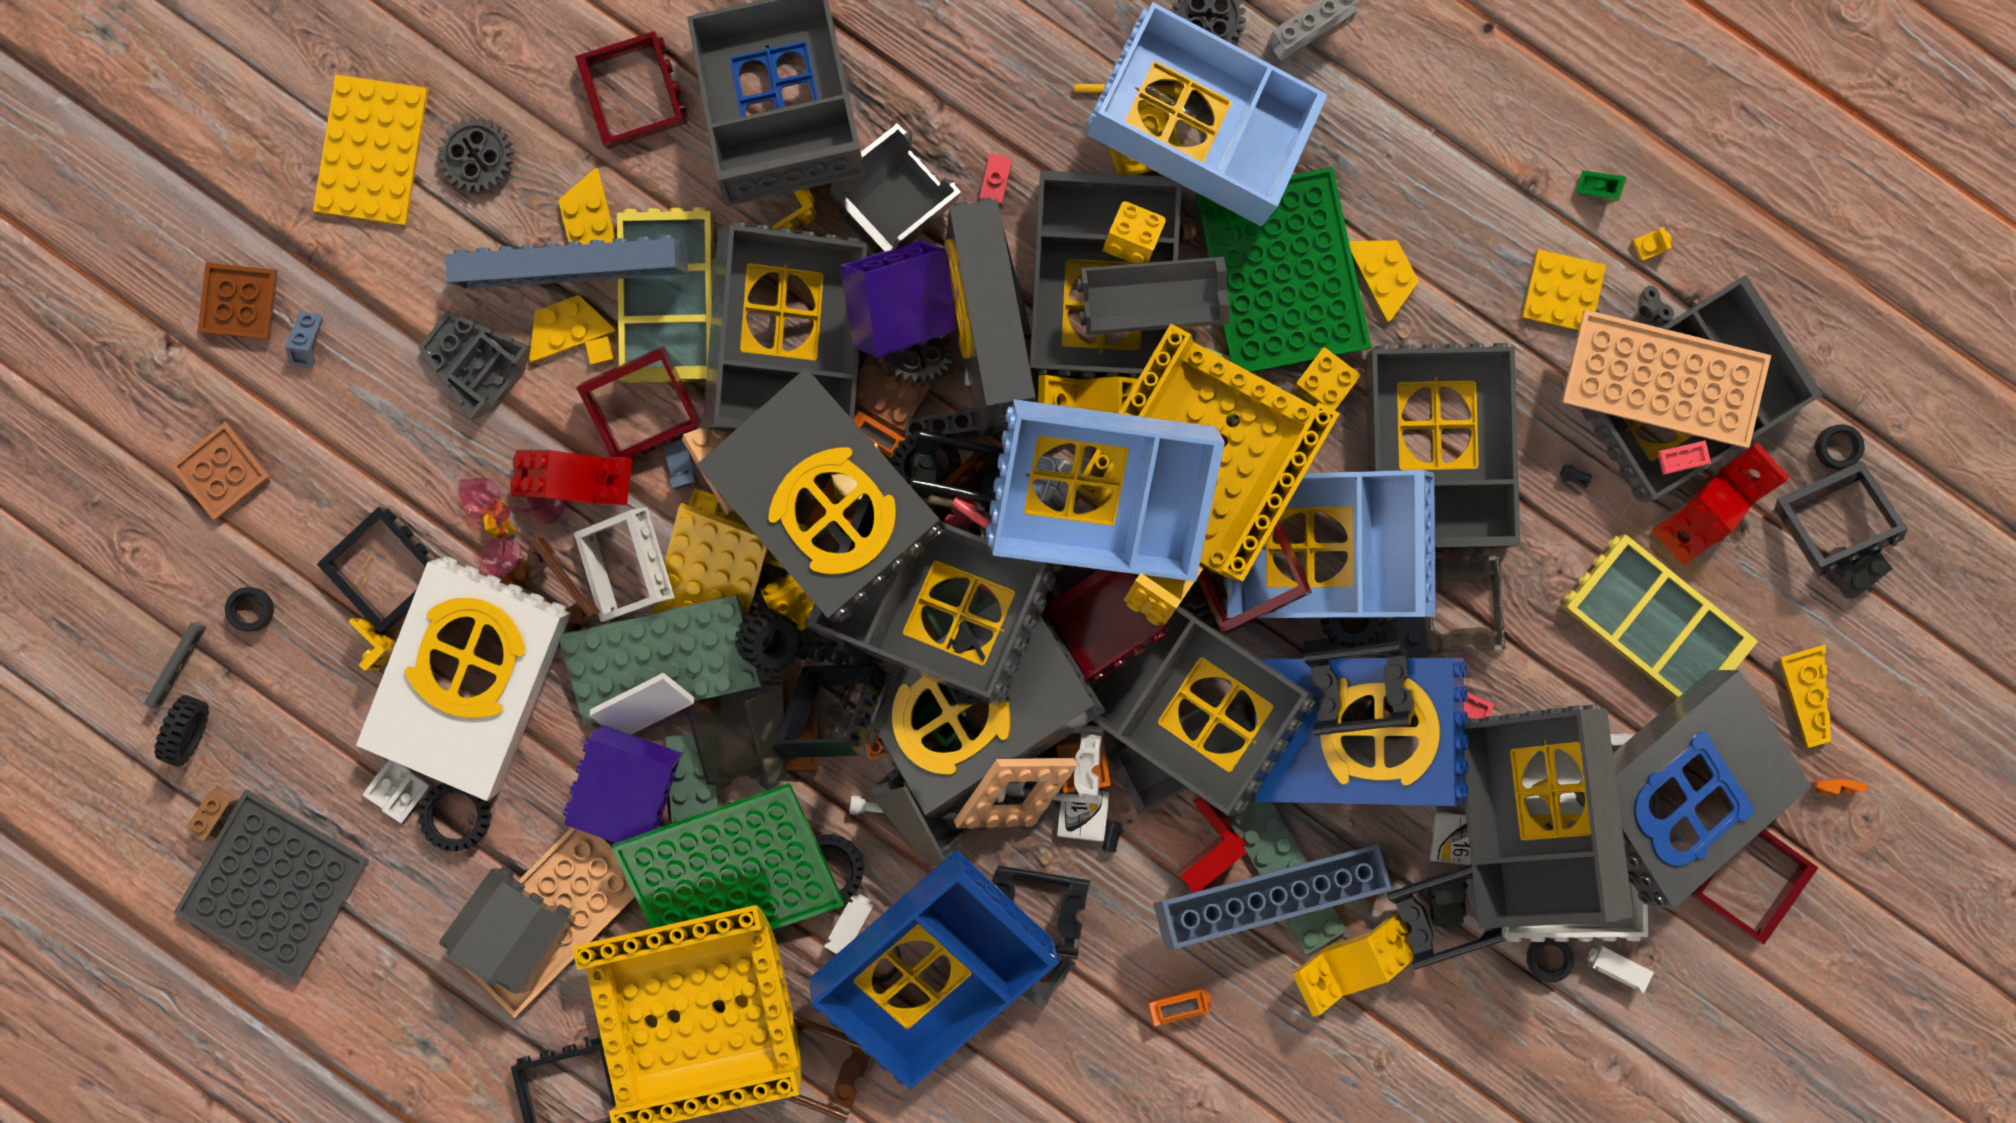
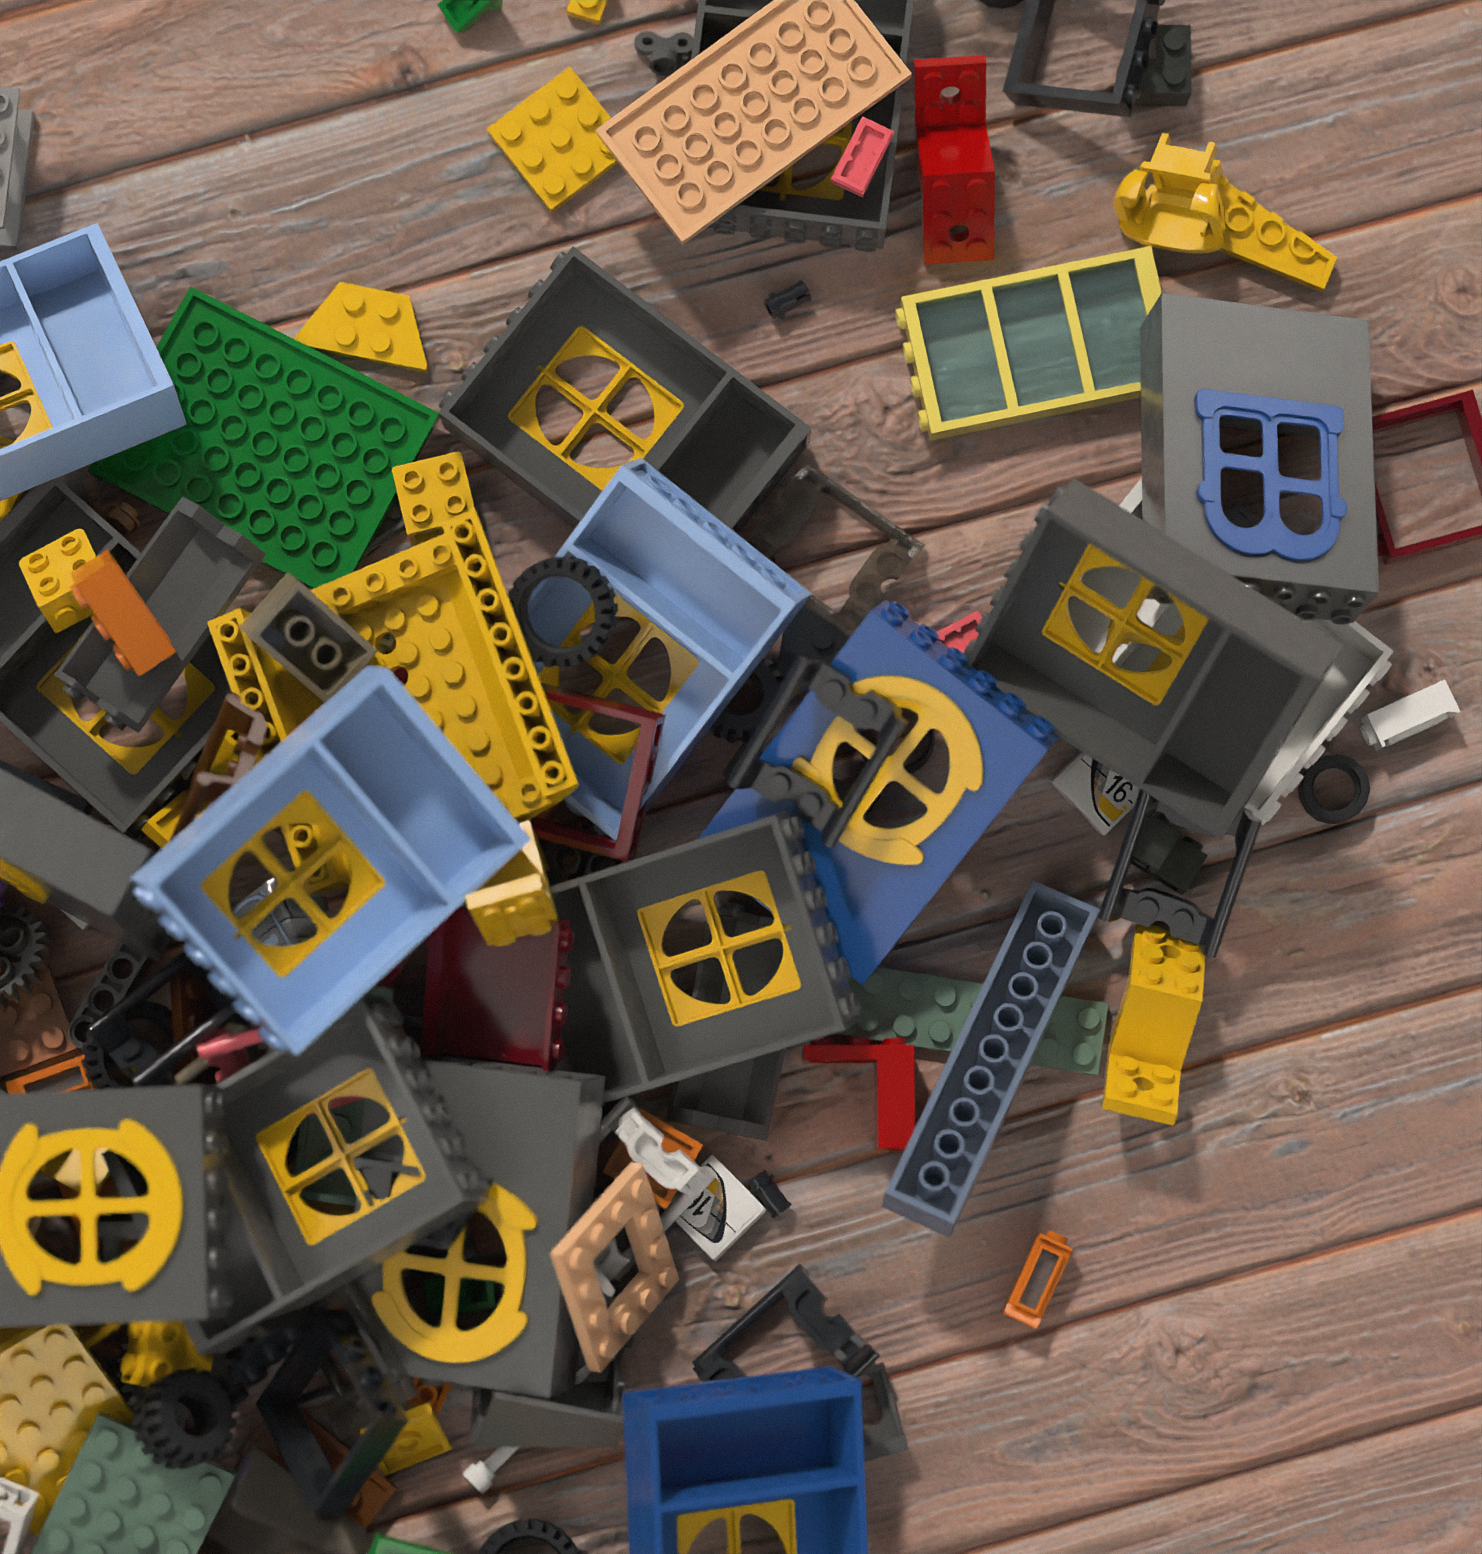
camera: 55 degrees left, 5 degrees down
(851, 765) = (418, 1441): none -> yellow tile
(1089, 399) = (204, 784): none -> reddish brown piece
(1139, 277) = (121, 614): none -> orange brick
(1204, 382) = (308, 638): none -> dark tan brick
(1350, 504) = (601, 596): none -> black tyre
(1791, 640) = (1182, 207): none -> yellow piece
(1832, 785) = (1392, 297): orange slope -> none

